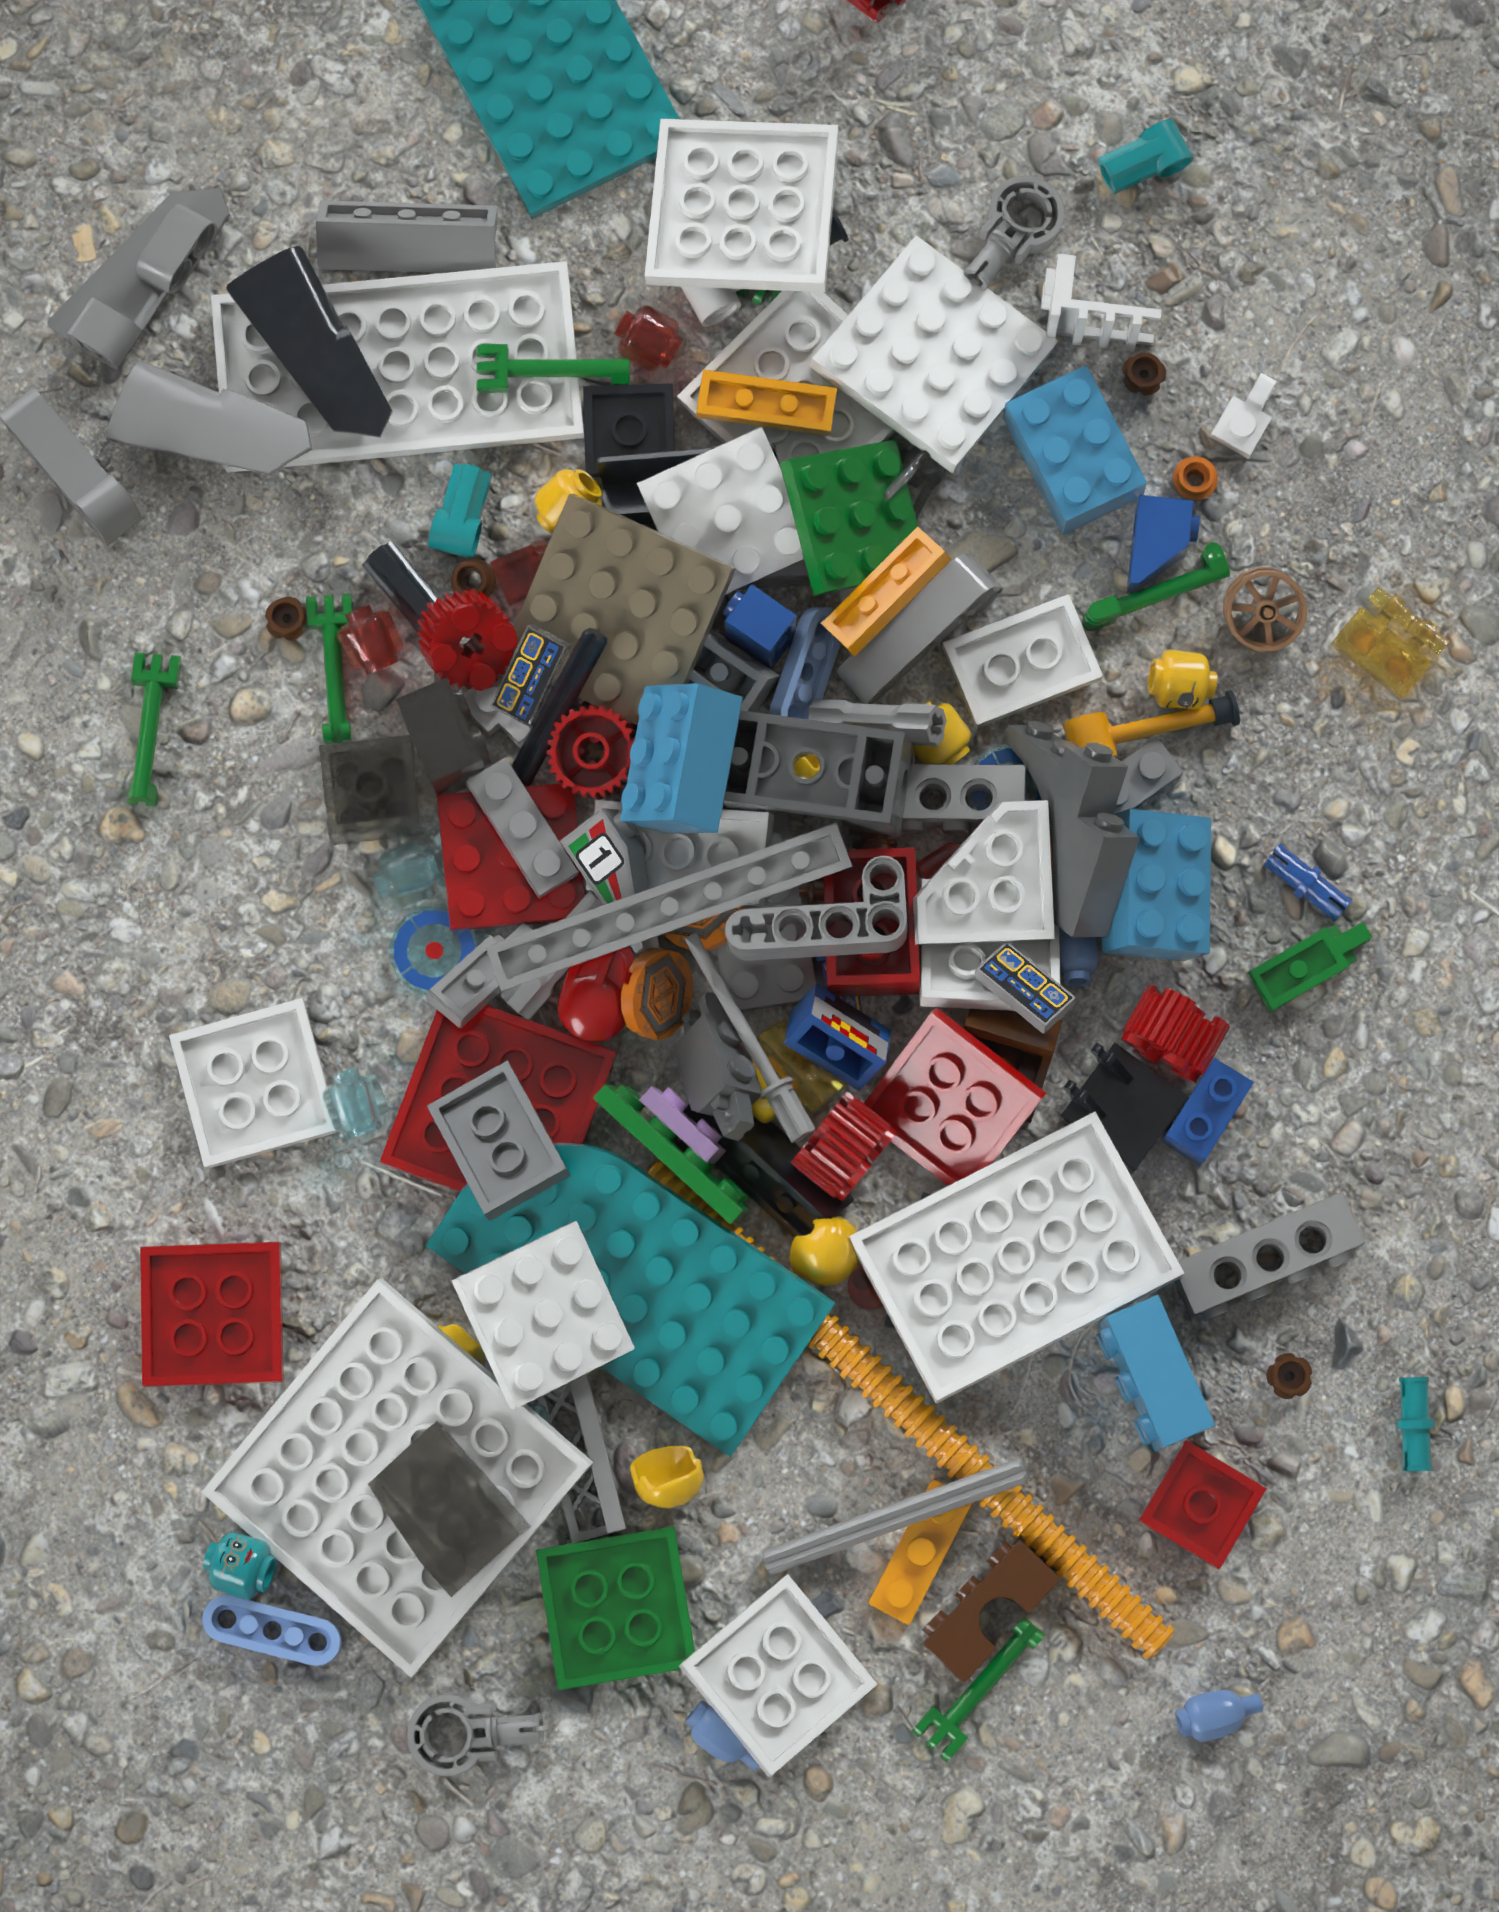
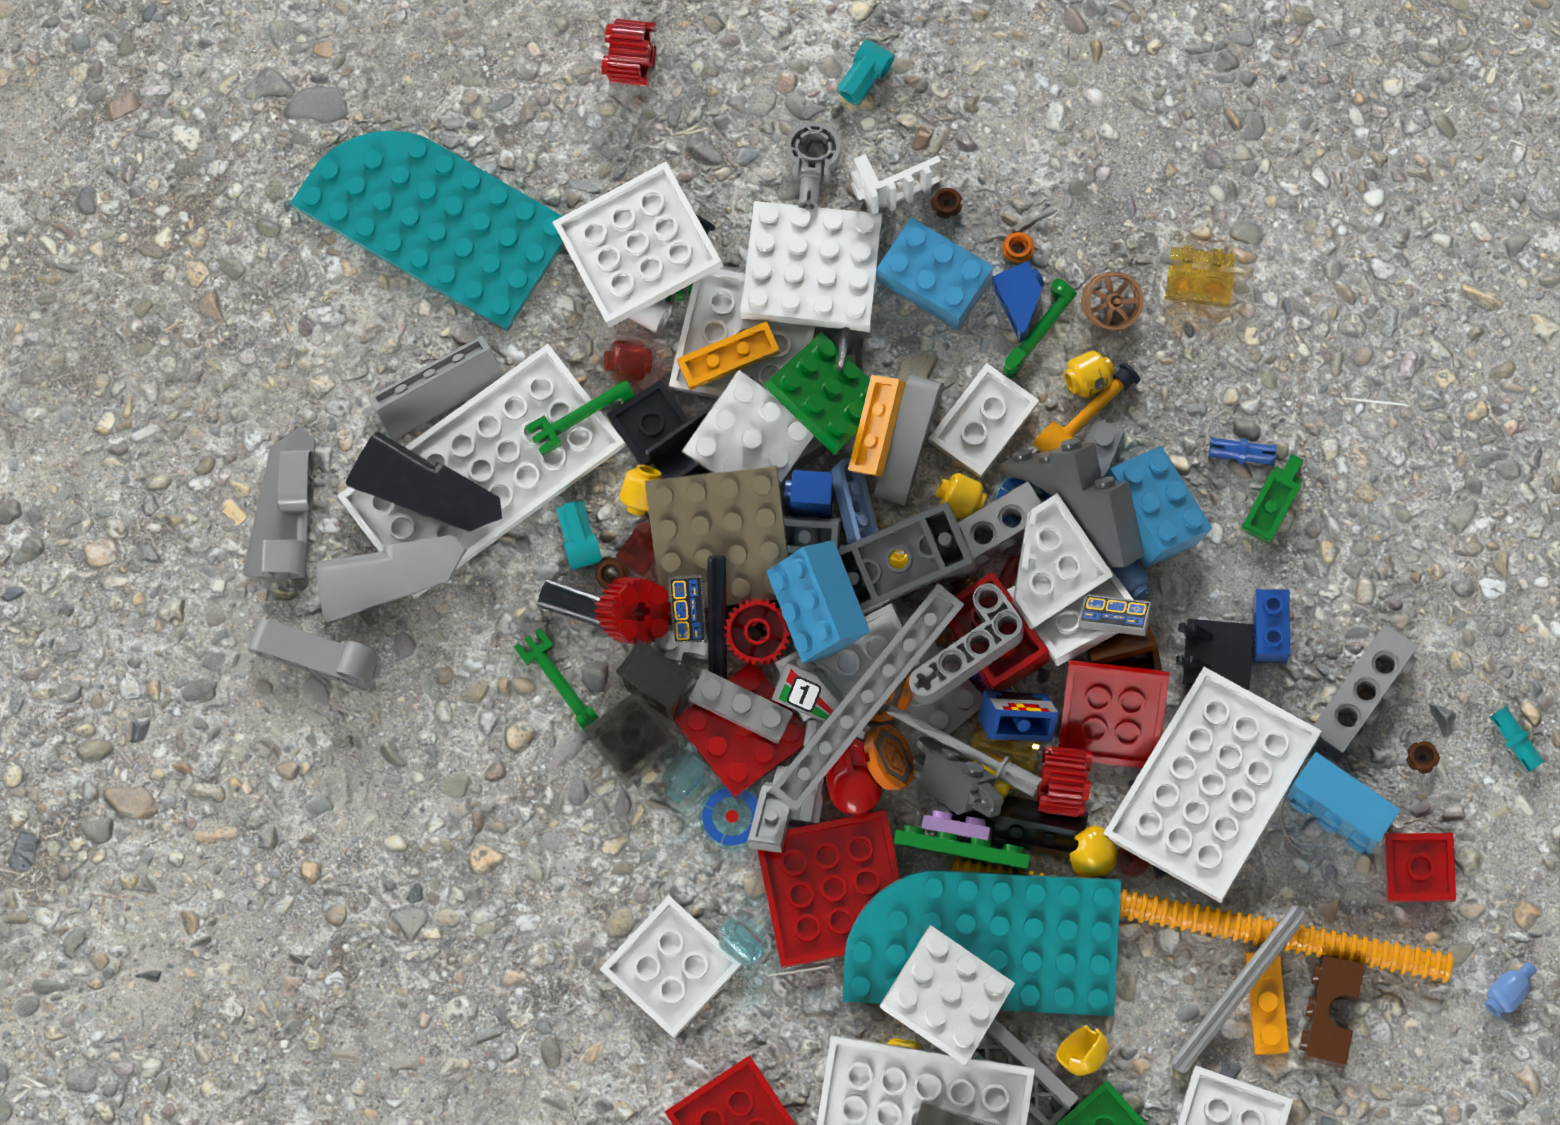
camera: 25 degrees left, 5 degrees down
(154, 681) = (450, 755): green hinge -> none
(276, 613) = (505, 659): reddish brown plate -> none
(370, 639) = (571, 648): clear red head -> none
(498, 1141) = (850, 906): plate -> none
(921, 722) = (950, 490): light grey axle -> none
(947, 1725) = (1351, 1098): green hinge -> none
(1175, 1031) = (1221, 589): red brick -> none
(1244, 422) = (1026, 197): white plate -> none

